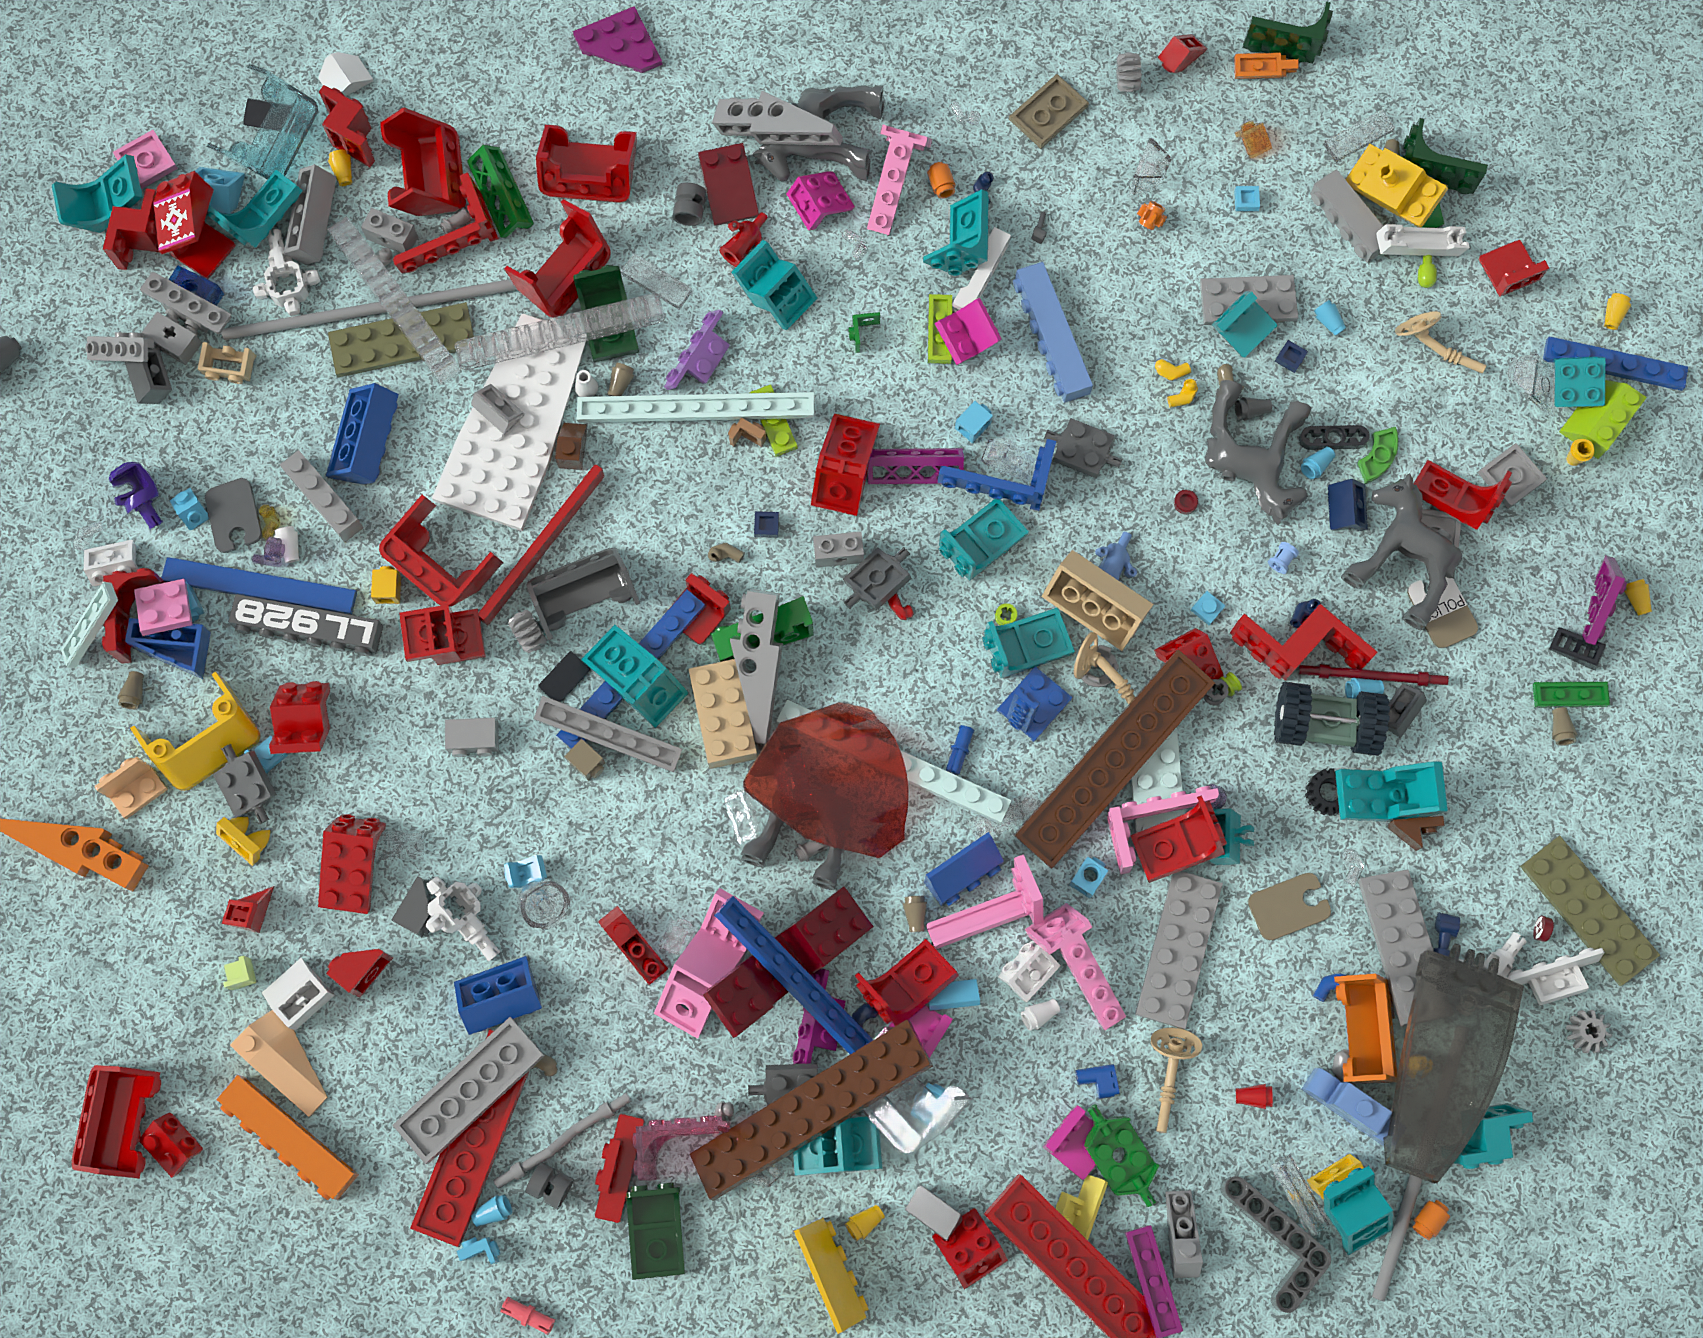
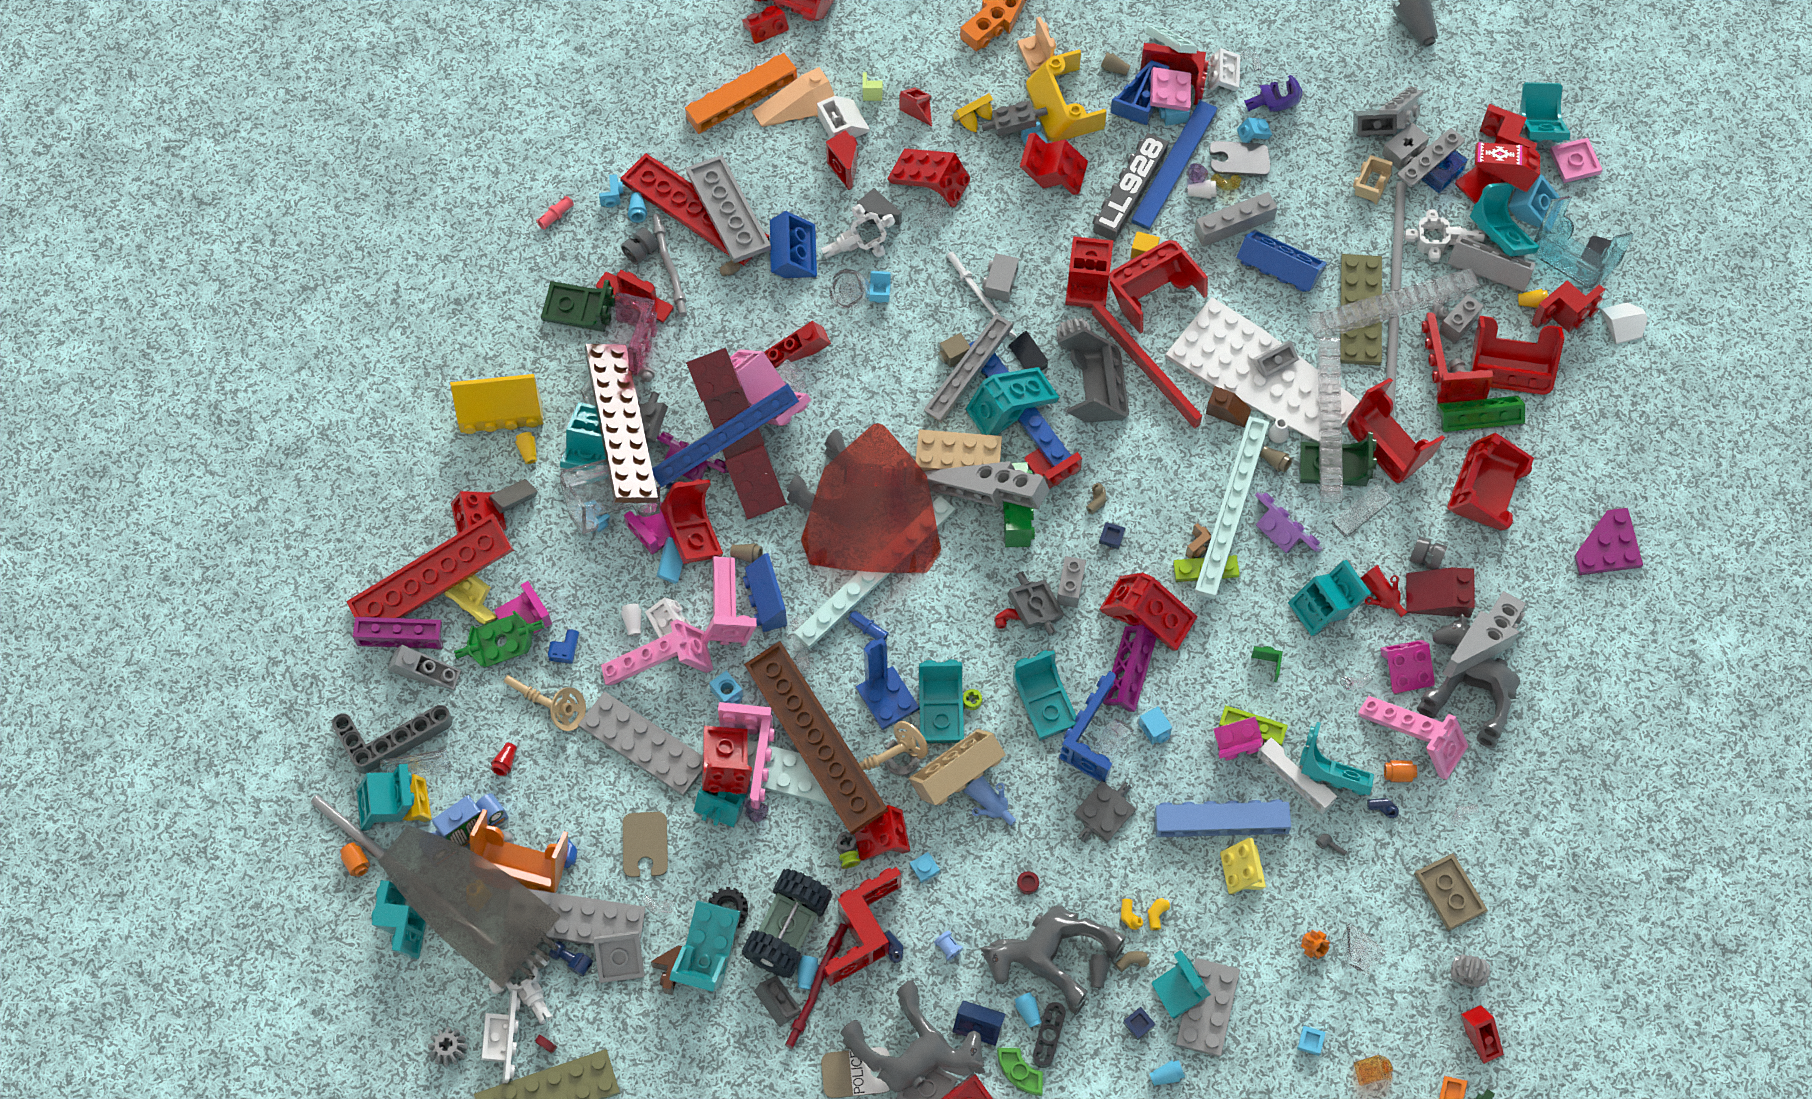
camera: 110 degrees right, 10 degrees down
(479, 779) = (966, 276): none -> white sword
(1098, 299) = (1242, 867): none -> light yellow bracket
(1427, 883) = (619, 956): none -> light grey plate

